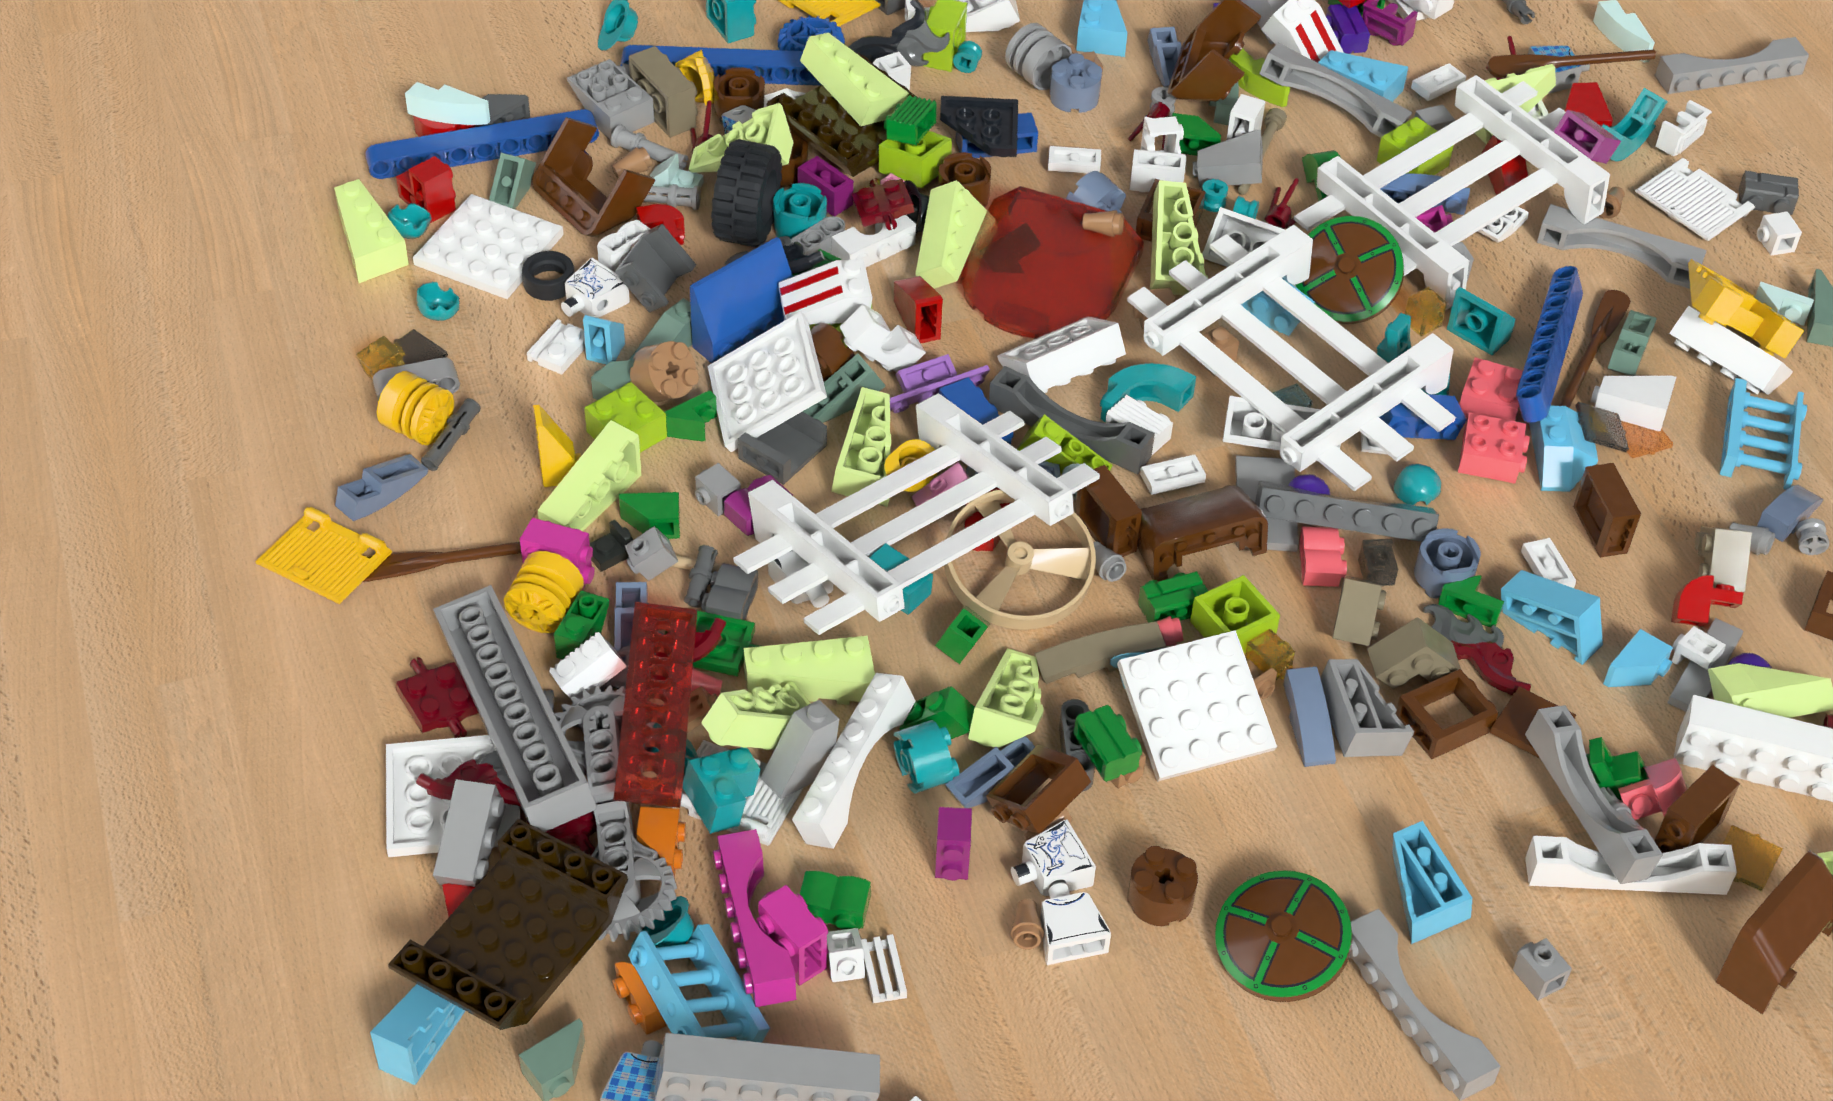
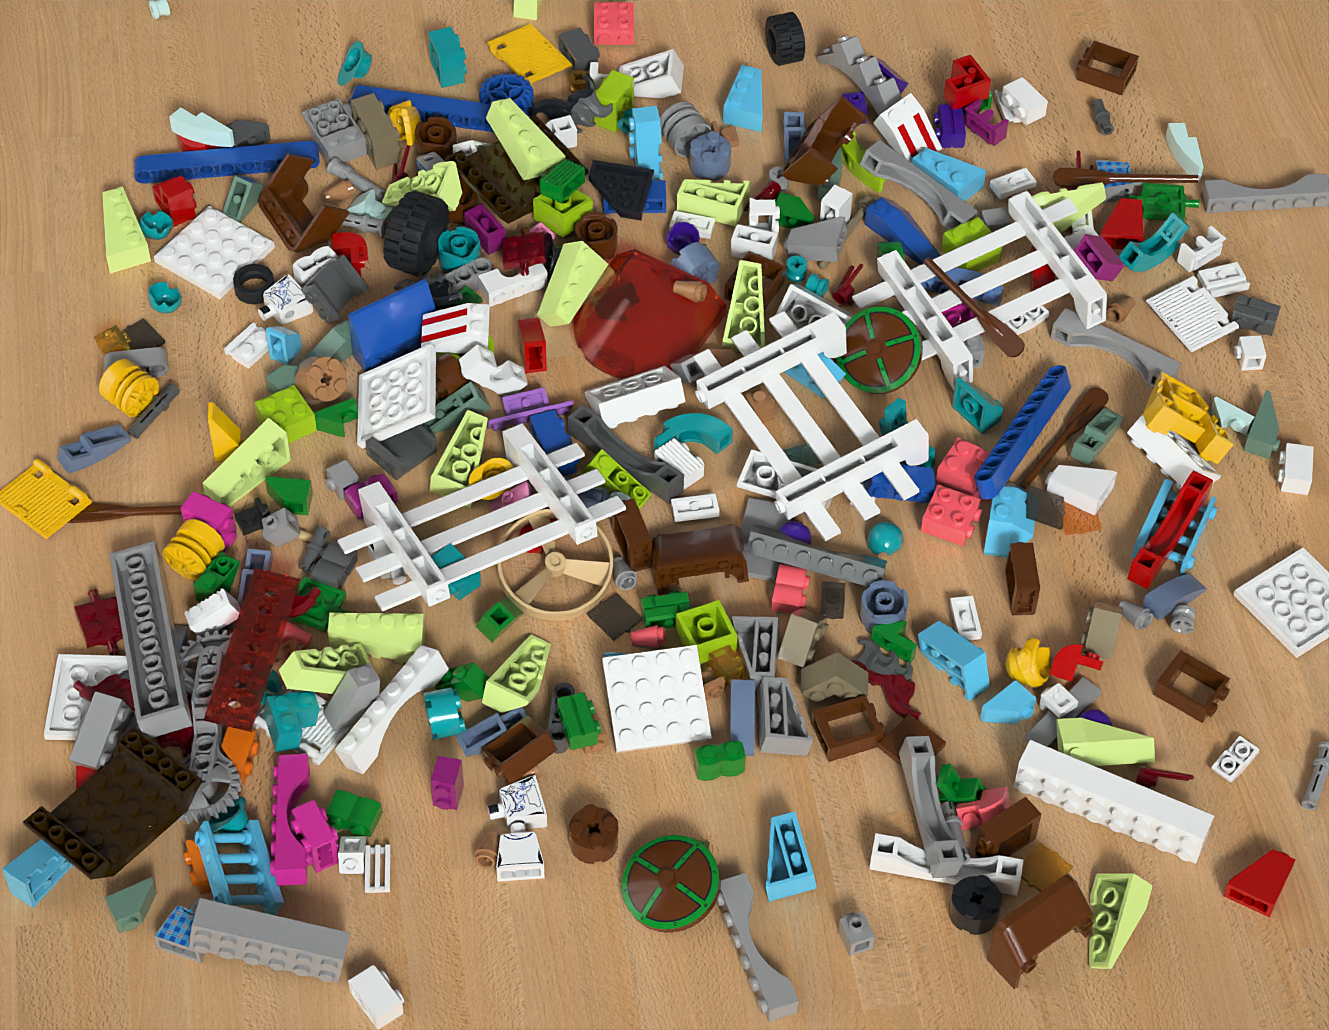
camera: 10 degrees right, 5 degrees up
(892, 18) = (576, 80): none -> pearl gold wheel
(997, 64) = (646, 139): none -> medium azure wedge
(1067, 172) = (681, 235): none -> dark purple hair
(1095, 650) = (591, 646): dark tan slope -> none
(1098, 128) = (714, 200): none -> yellowish green wedge
(1106, 612) = (614, 616): none -> clear smoke piece
(1122, 313) = (687, 369): none -> light grey brick
(1298, 772) = (724, 760): none -> green brick
(1306, 626) = (757, 645): none -> light grey wedge
(1310, 135) = (897, 224): none -> blue wedge
(1426, 311) = (934, 391): clear yellow brick -> none
(1489, 234) = (1000, 333): none -> reddish brown piece
(1620, 83) = (1162, 200): none -> green plate
(1648, 609) = (1030, 664): none -> yellow helmet
(1682, 911) = (975, 904): none -> black brick
(1717, 159) = (1223, 279): none -> white plate
(1766, 433) = (1180, 516): none -> red arch

